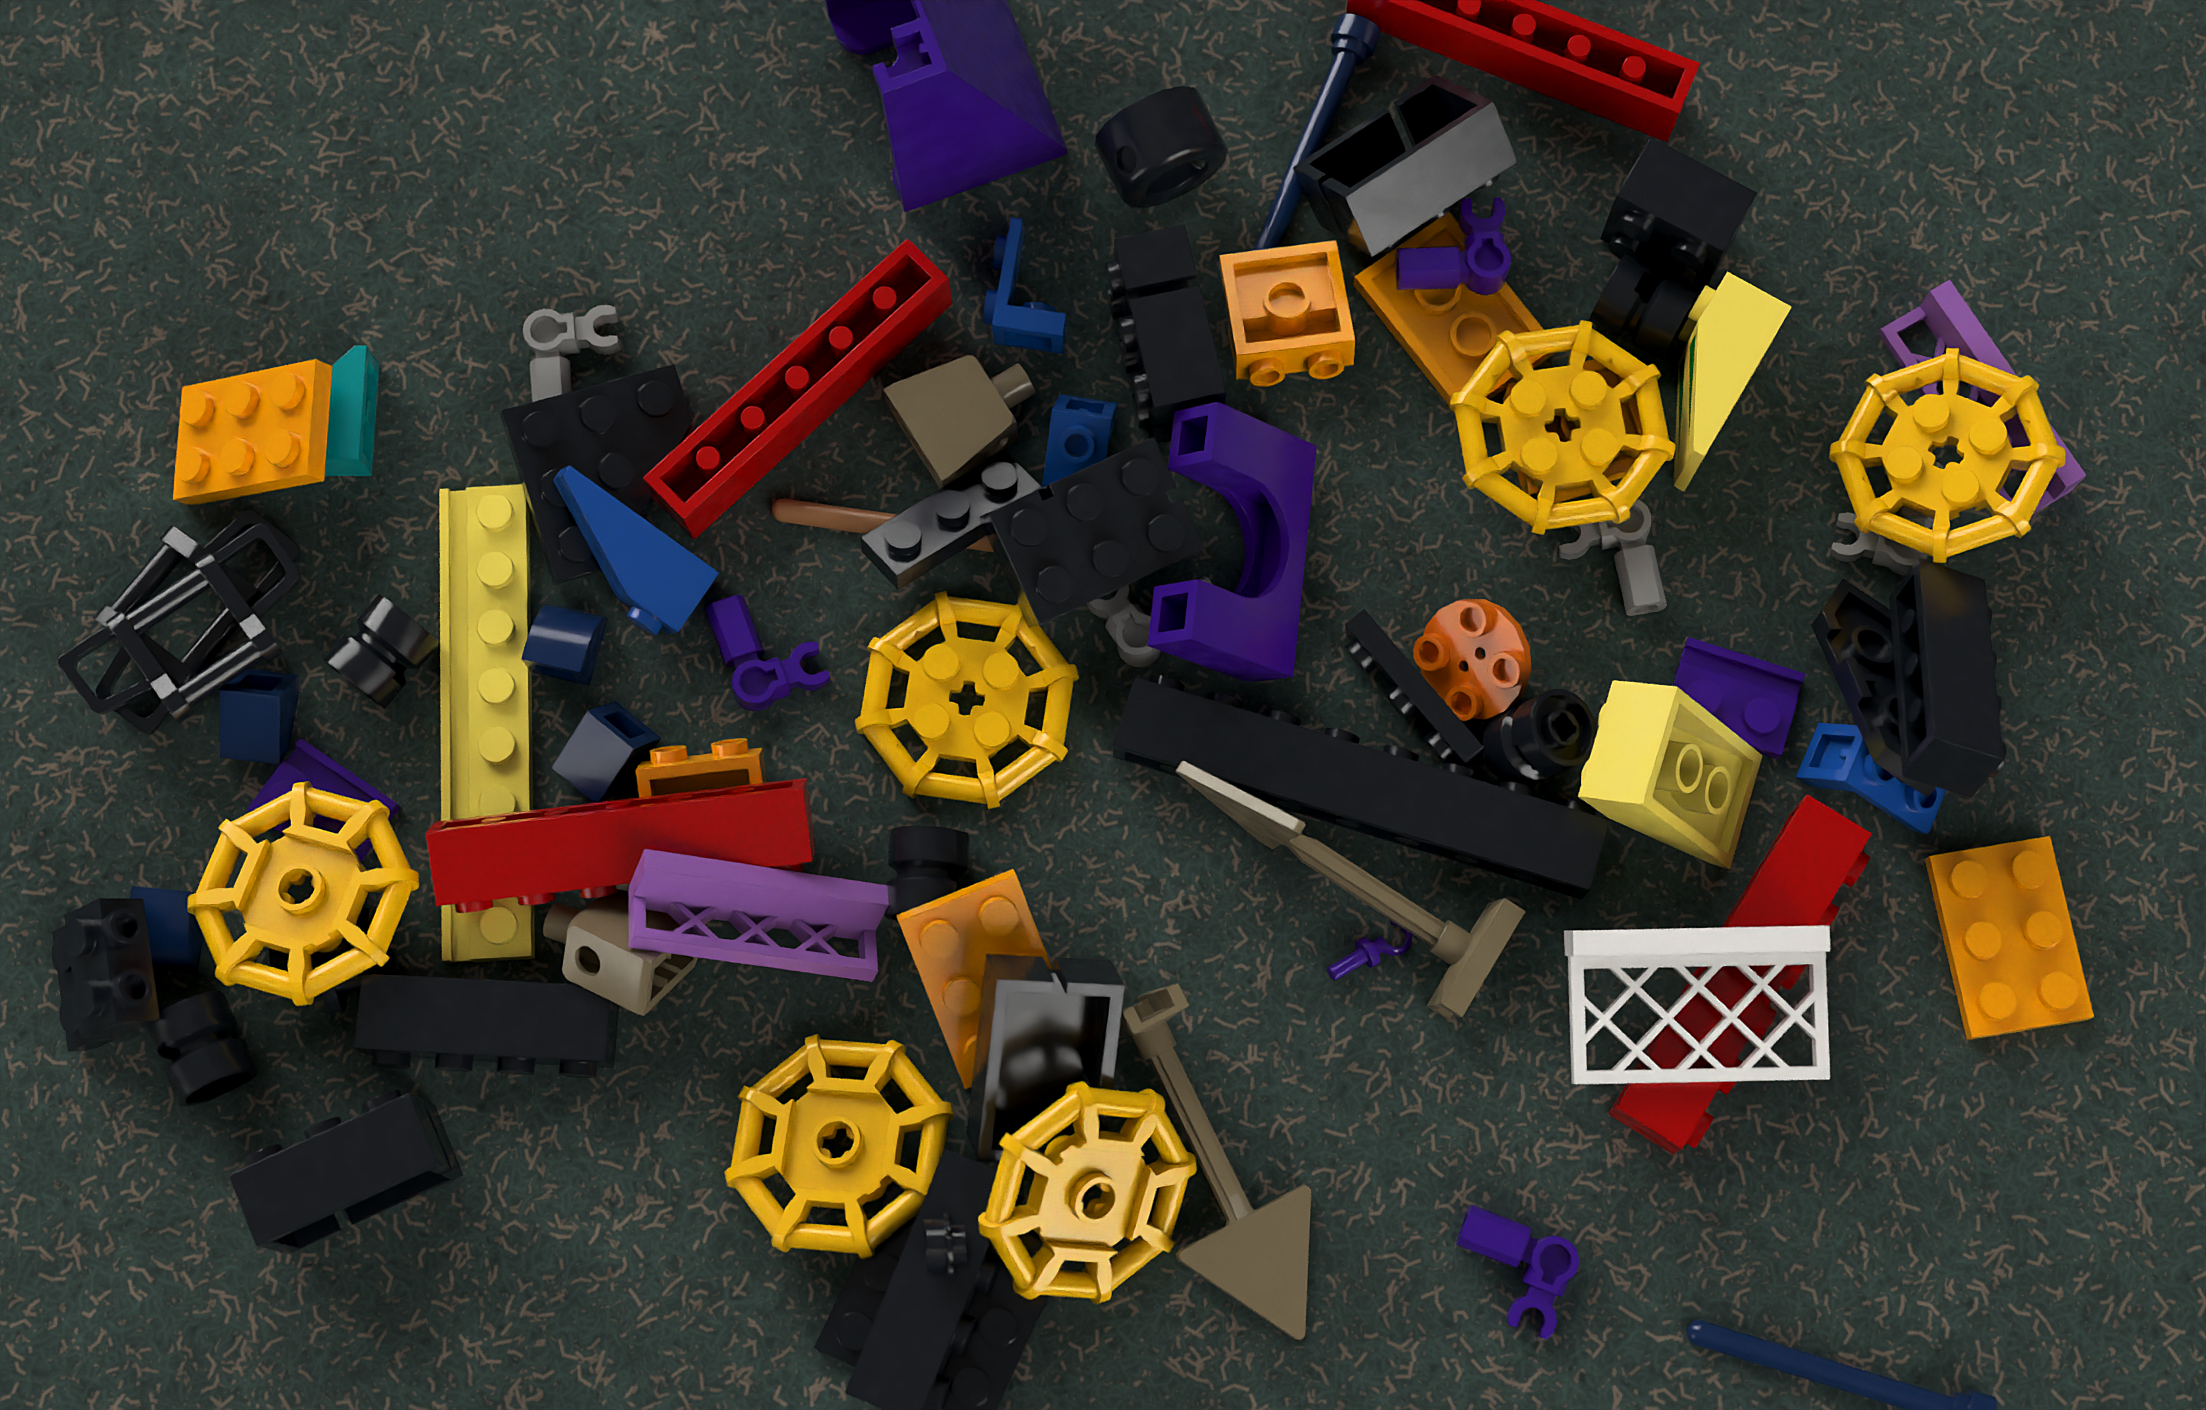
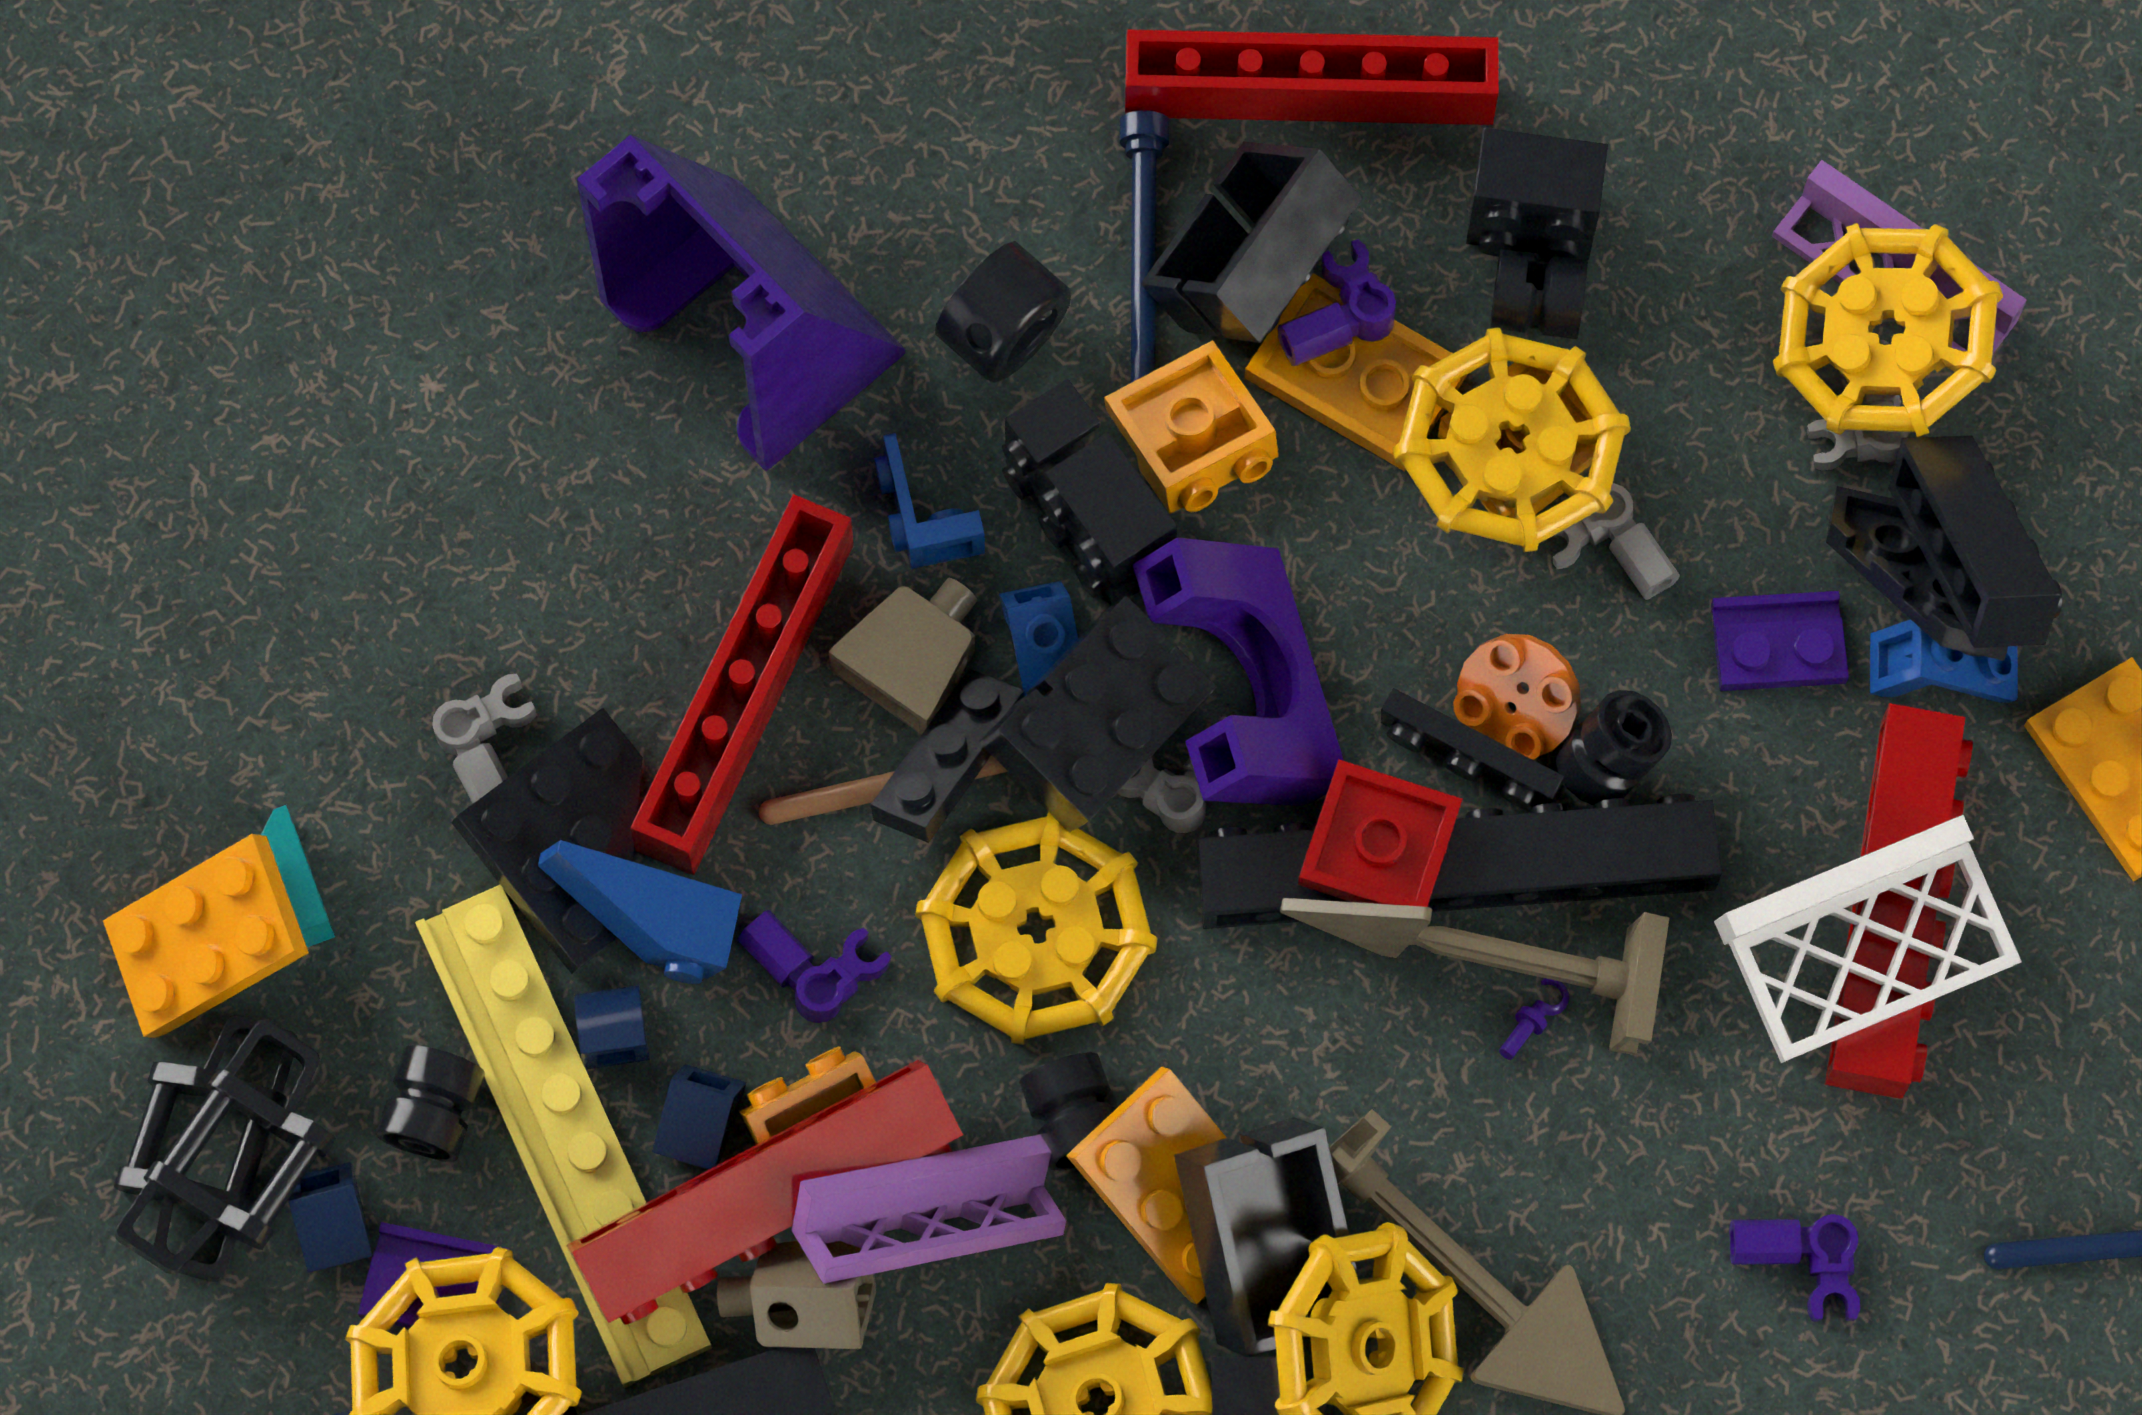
camera: 25 degrees left, 5 degrees down
(1291, 741) = (1379, 838): none -> red plate
(1670, 771) = (1751, 730): light yellow slope -> none
(1725, 344) = (1634, 311): light yellow slope -> none

